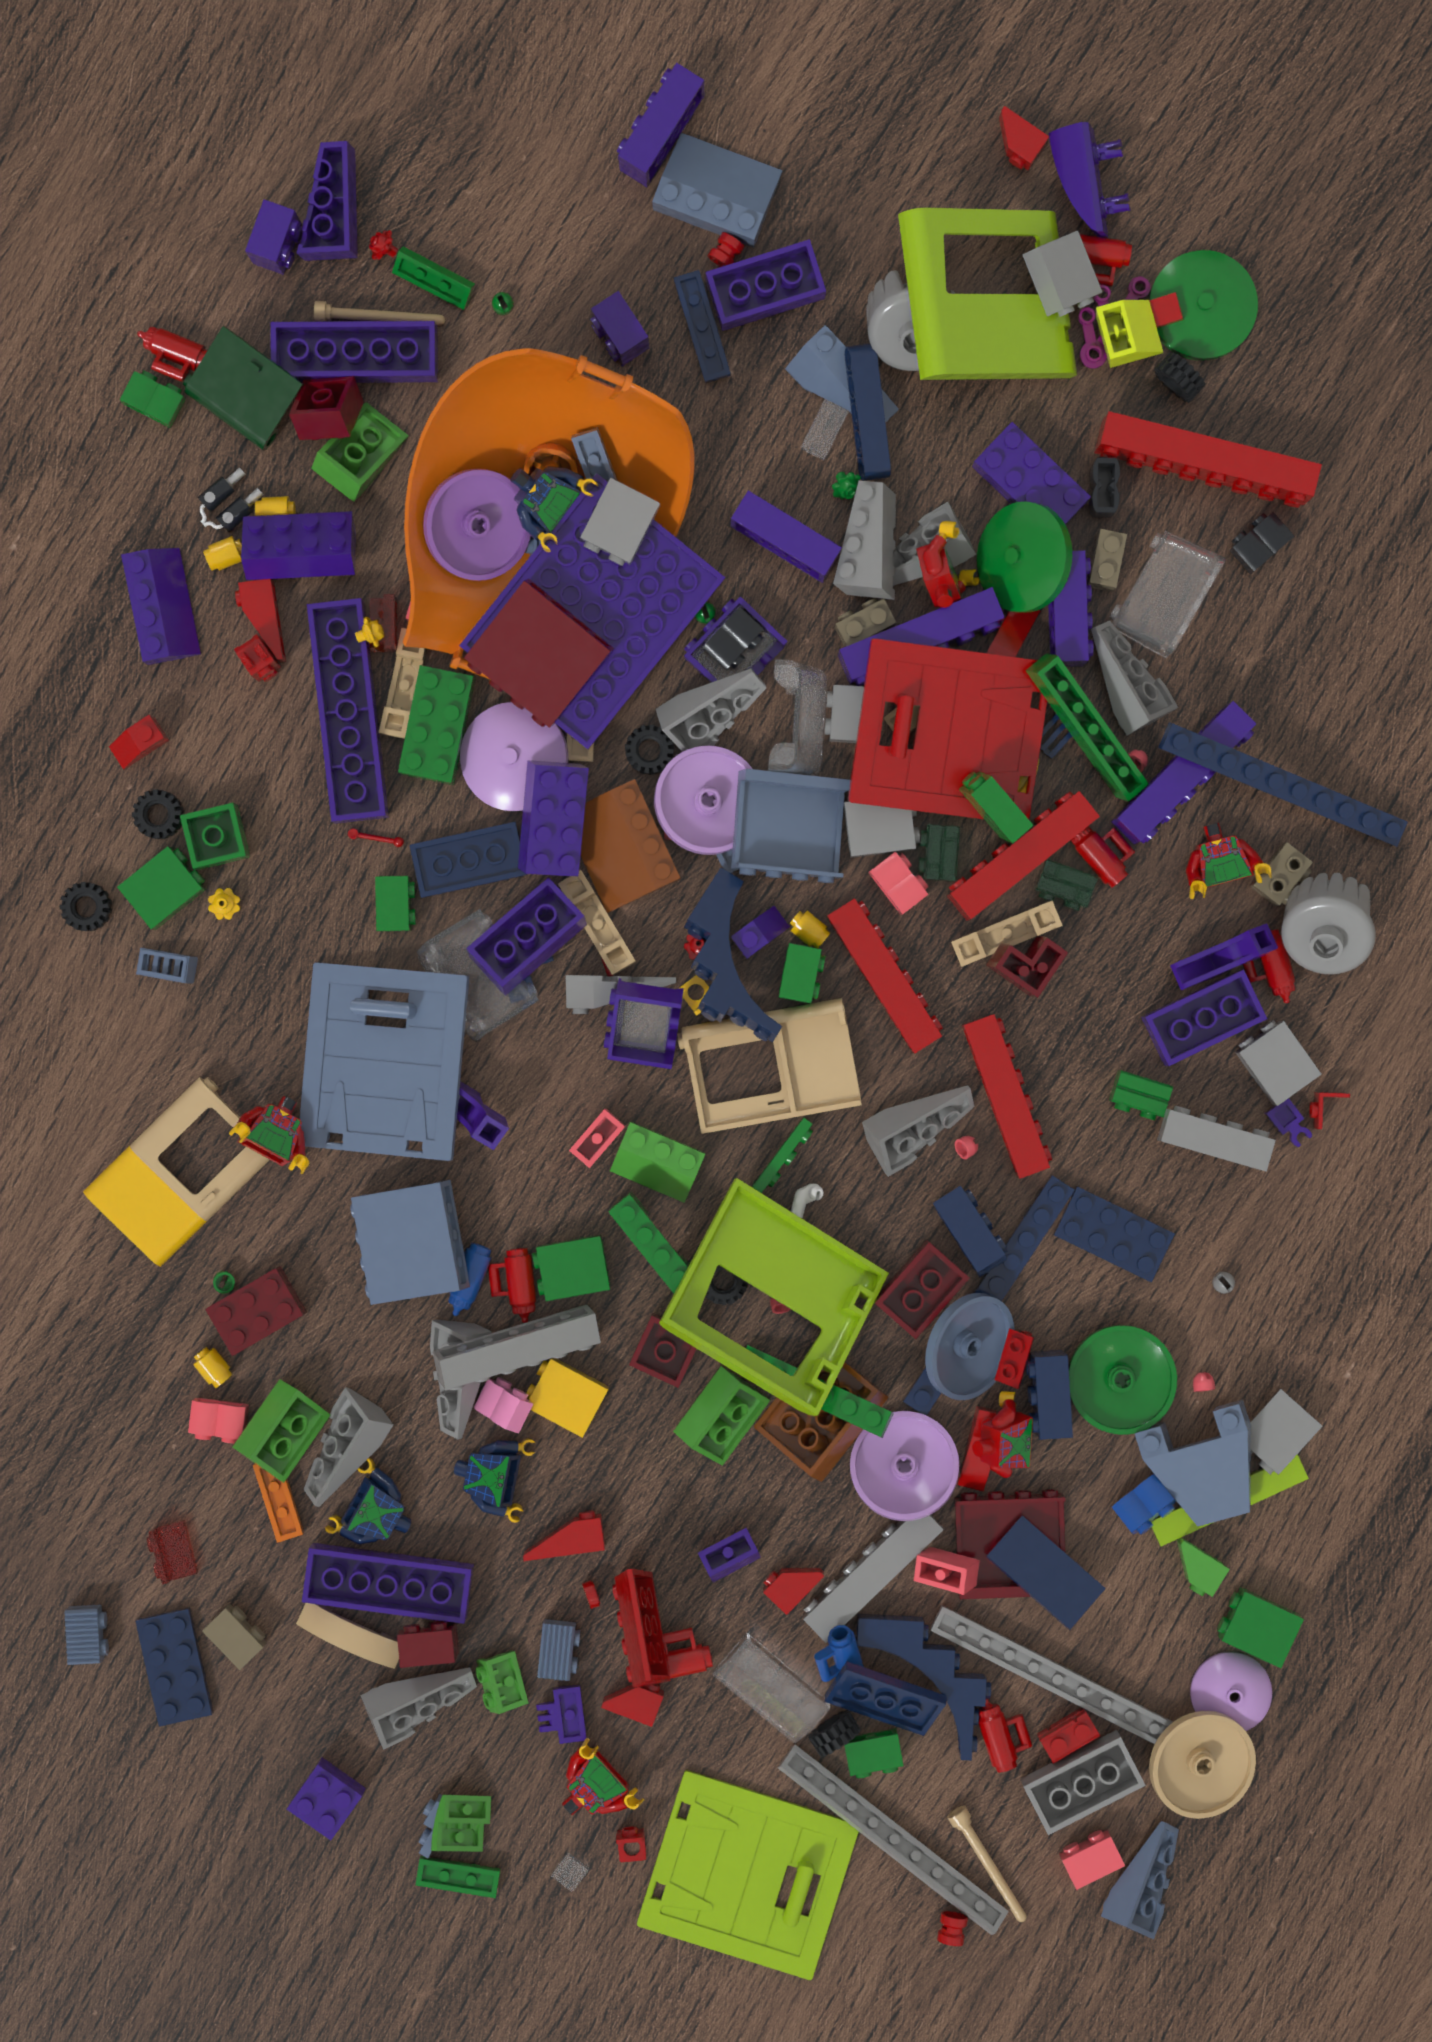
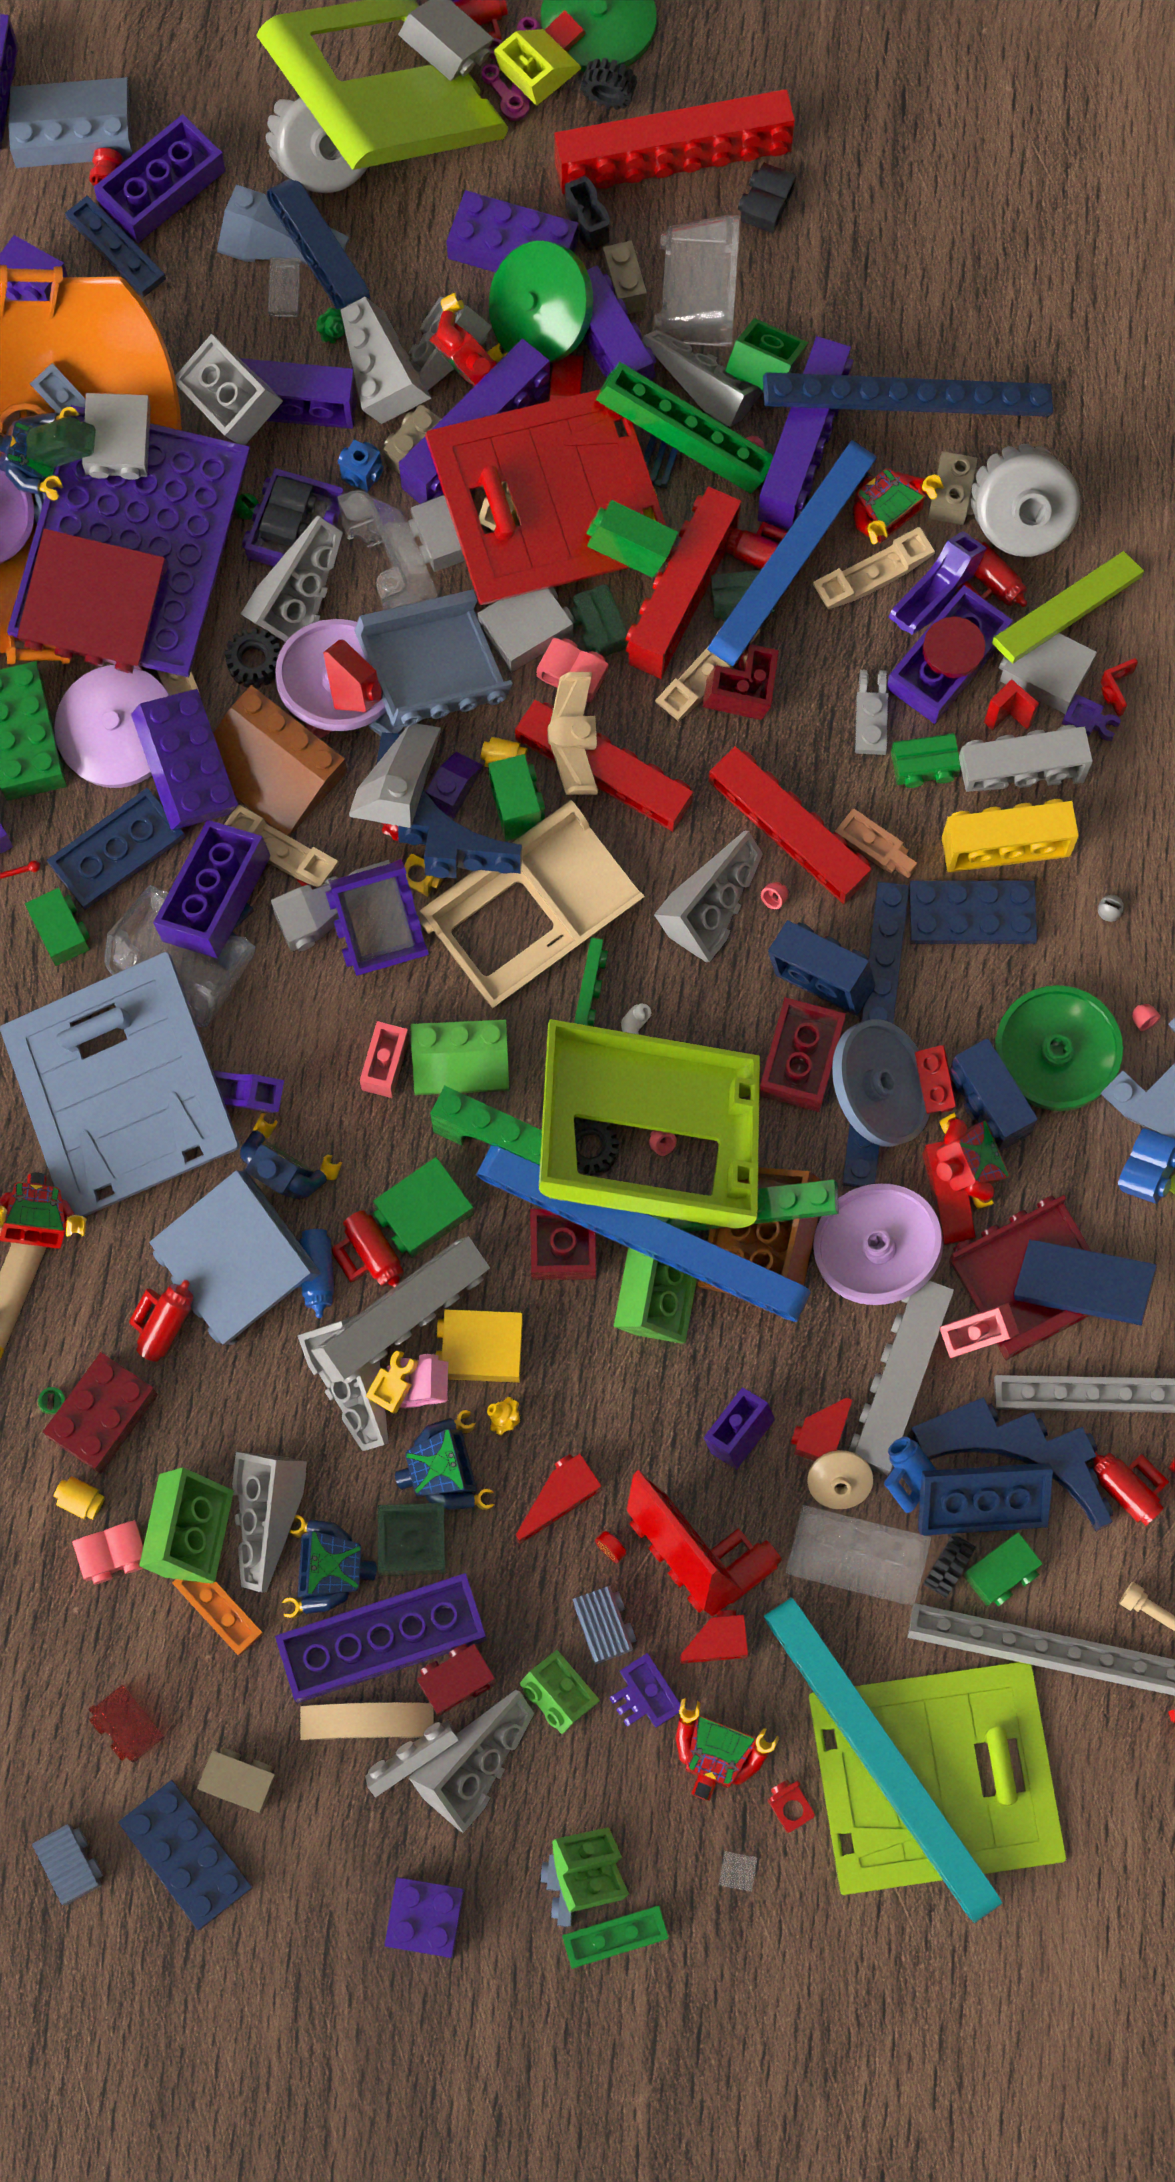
camera: 20 degrees left, 15 degrees down
(334, 1265) = (164, 1320): none -> red piece
(369, 1680) = (411, 1757): none -> light grey plate
(444, 1521) = (411, 1539): none -> clear green brick
(476, 1187) = (279, 1169): none -> dark blue torso
(481, 1402) = (390, 1386): none -> yellow plate
(558, 1458) = (504, 1415): none -> yellow plant
(570, 512) = (61, 441): none -> clear green brick
(711, 920) = (397, 781): none -> light grey wedge
(713, 1847) = (883, 1760): none -> teal beam
(715, 817) = (351, 678): none -> red slope
(728, 522) = (227, 391): none -> light grey slope
(736, 1394) = (653, 1239): none -> blue beam
(785, 1628) = (839, 1468): none -> tan dish
(809, 634) = (360, 465): none -> blue brick
(870, 944) = (573, 734): none -> tan plate
(1065, 1142) = (876, 844): none -> nougat hinge
(1117, 1034) = (871, 716): none -> light grey hinge
(1120, 876) = (792, 553): none -> blue beam
(1171, 1193) = (1009, 835): none -> yellow brick
(1181, 914) = (876, 571): none -> tan slope
(1186, 691) = (763, 350): none -> green brick
(1207, 1020) = (954, 647): none -> dark red tile
(1229, 1080) = (1012, 701): none -> red panel
(1318, 1025) = (1067, 607): none -> lime tile

